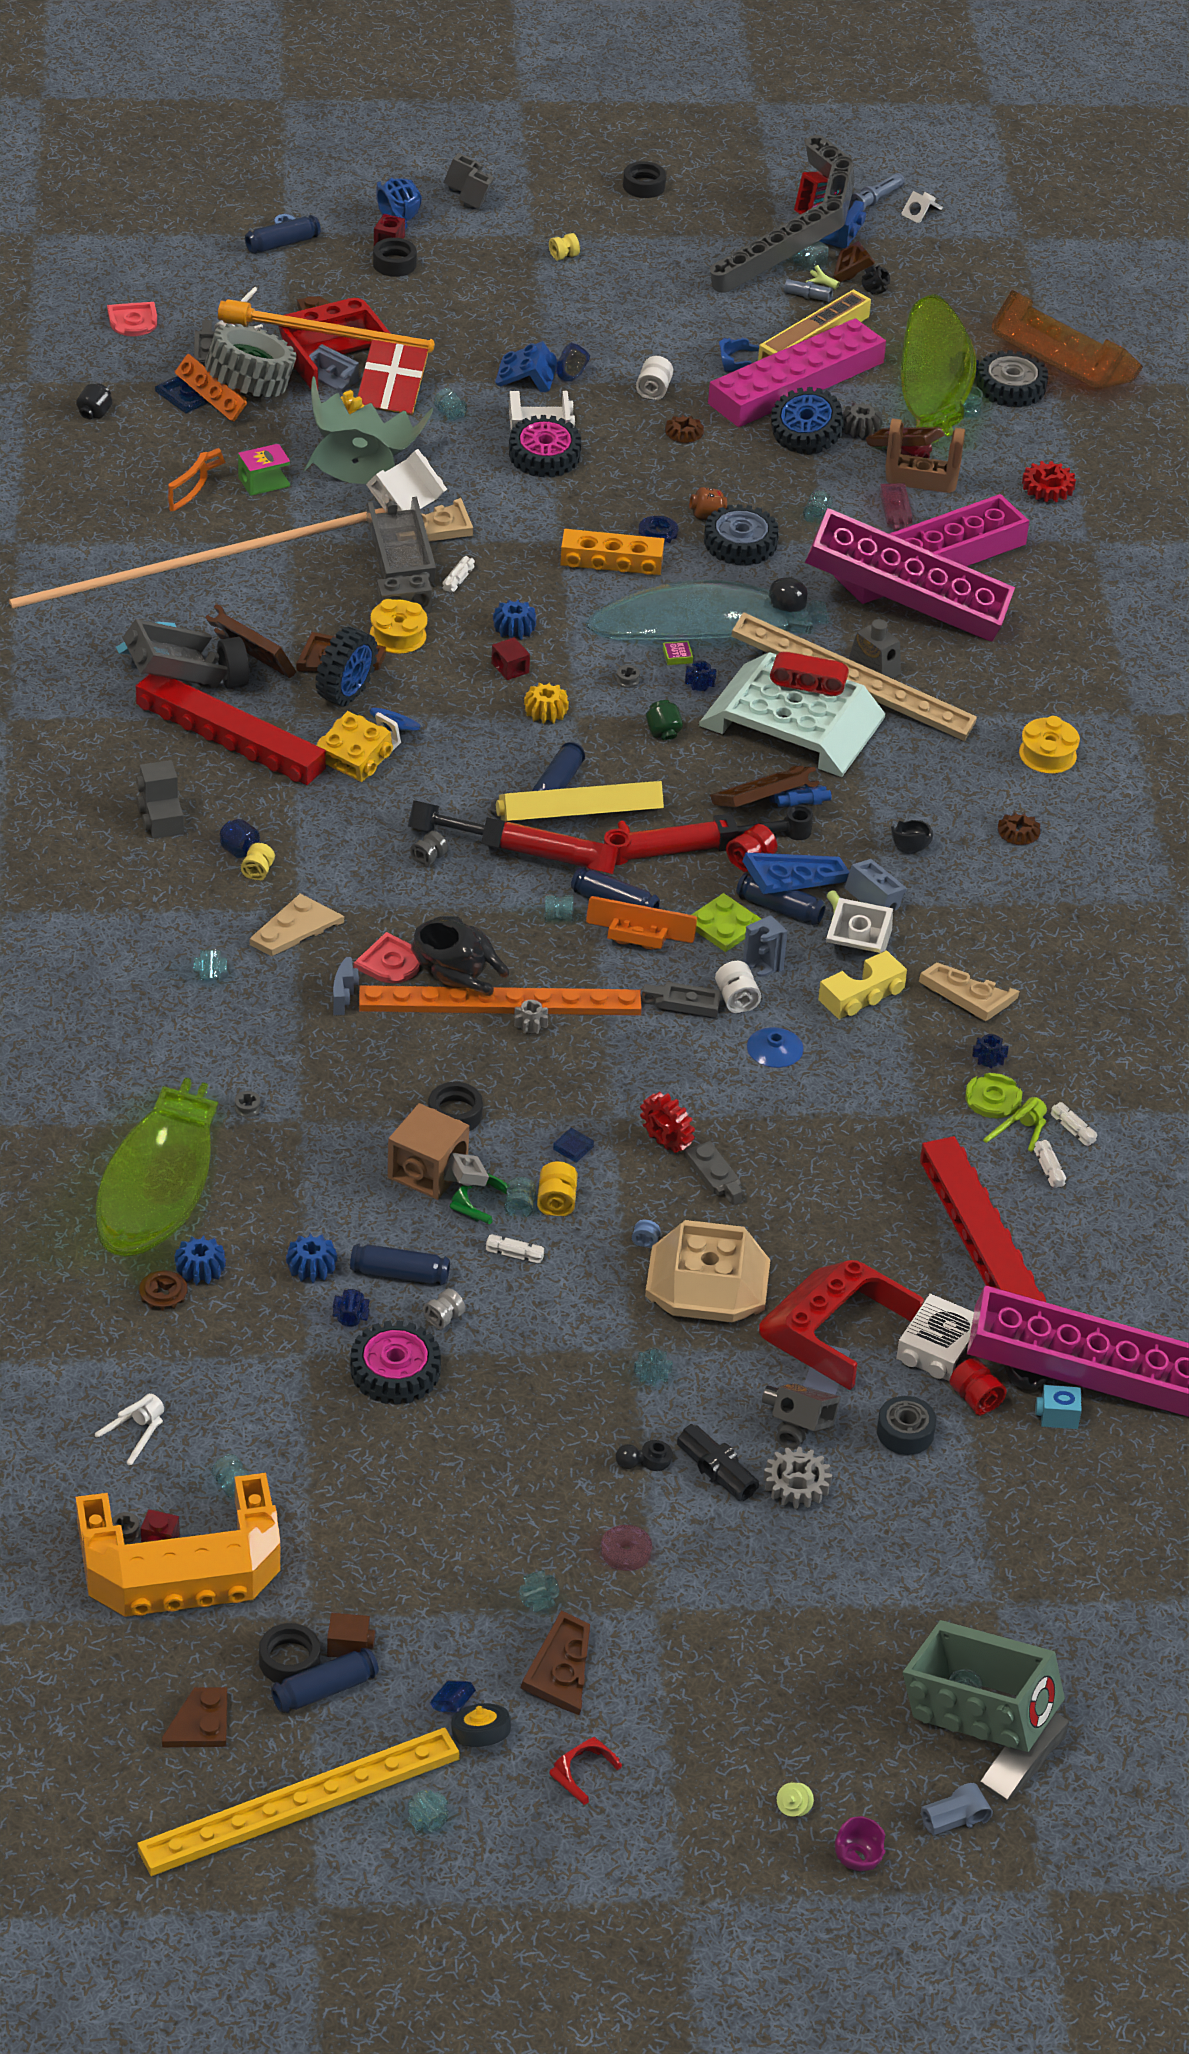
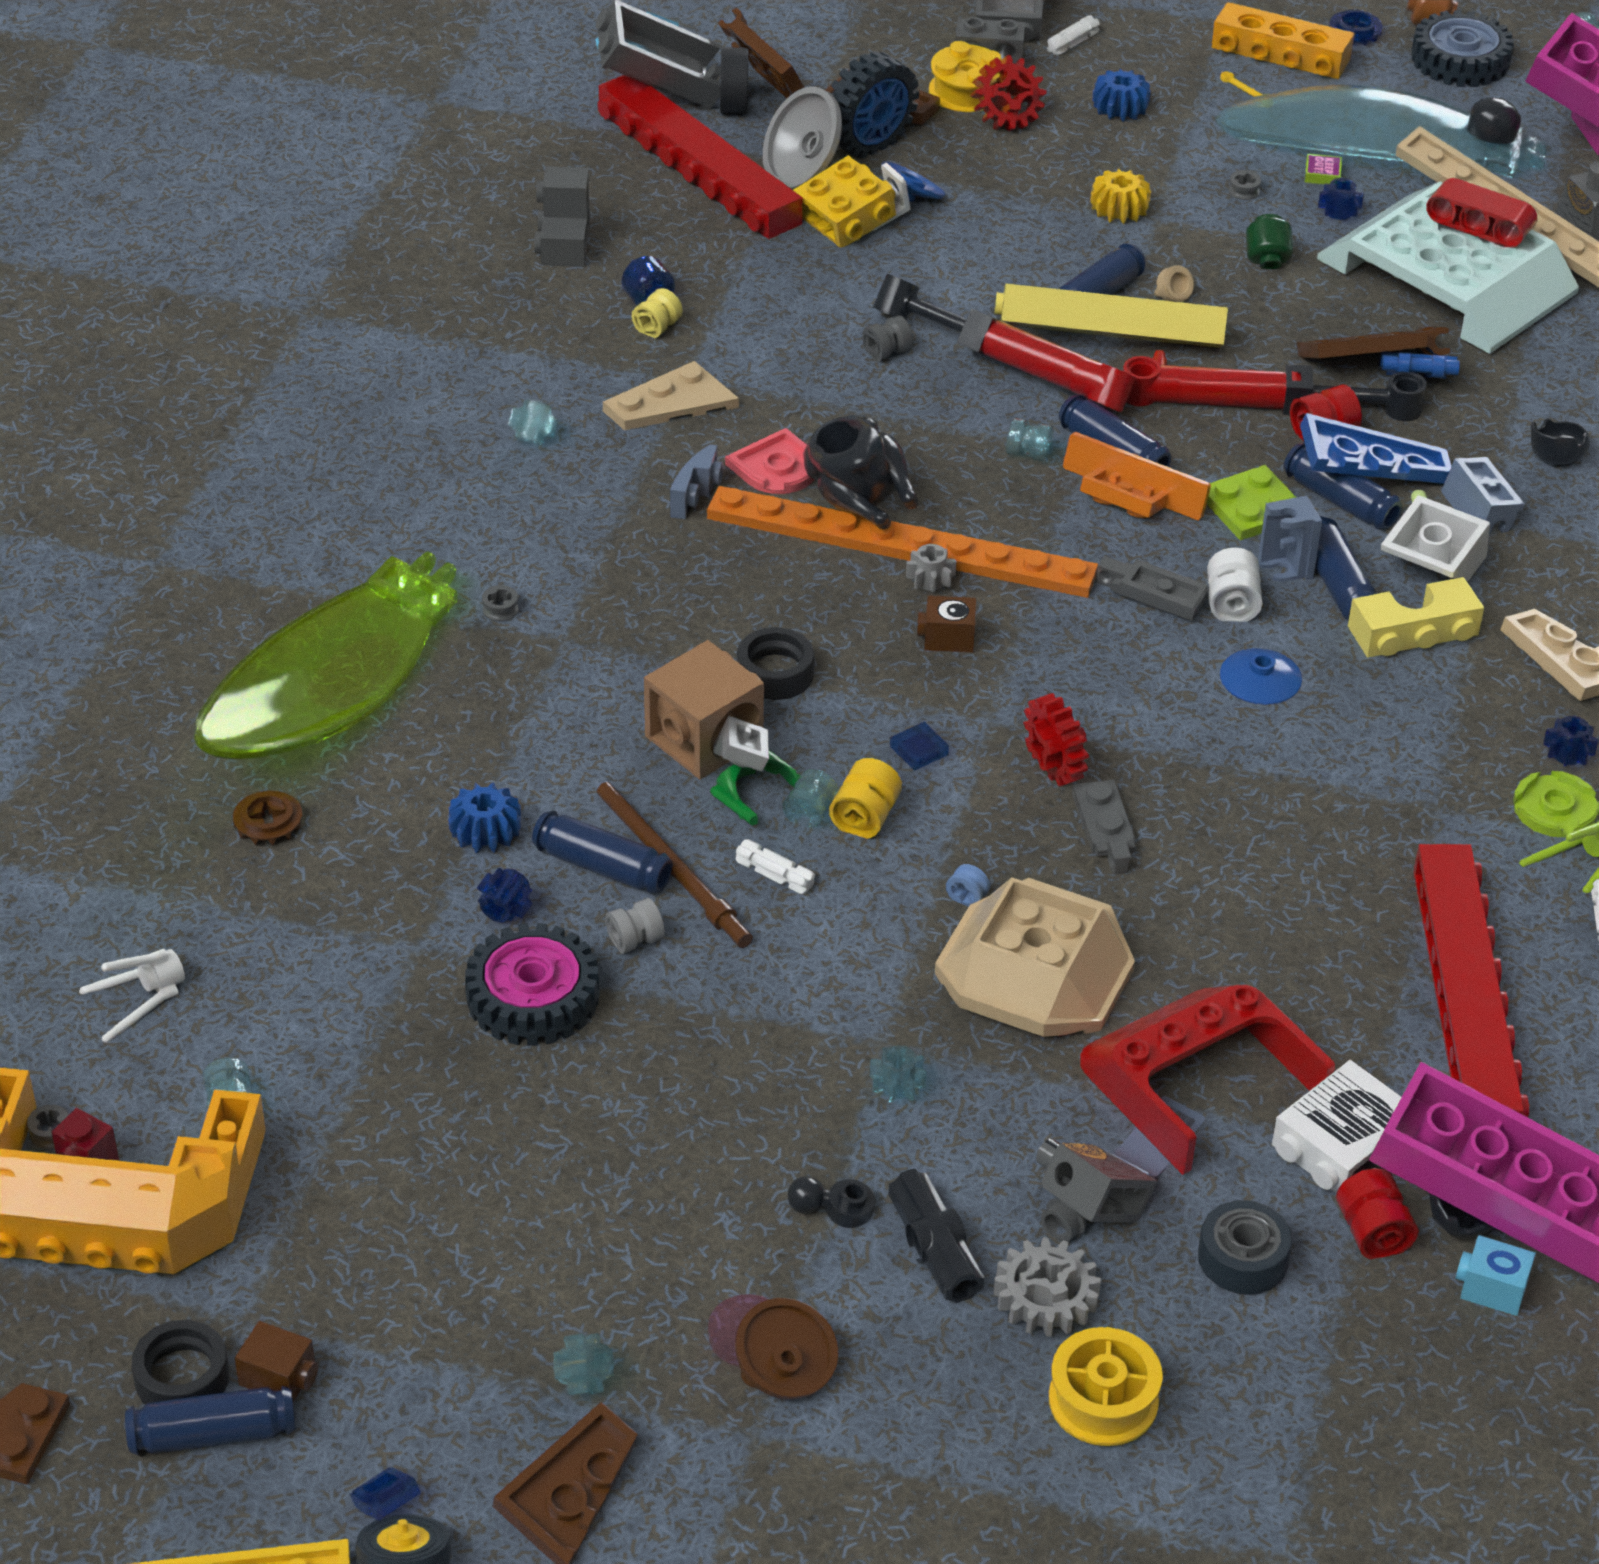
camera: 20 degrees right, 0 degrees up
(200, 1259) = (333, 787): blue gear -> none
(298, 699) = (802, 136): none -> light grey dish
(441, 624) = (1018, 83): none -> red gear
(491, 1287) = (717, 910): none -> reddish brown bar
(510, 658) = (1096, 137): dark red brick -> none
(560, 1054) = (948, 624): none -> reddish brown brick
(582, 588) = (1229, 77): none -> yellow hinge
(610, 766) = (1174, 284): none -> tan tile
(658, 1552) = (785, 1348): none -> reddish brown piece
(804, 962) = (1340, 567): none -> dark blue axle
(856, 1528) = (1105, 1386): none -> yellow wheel

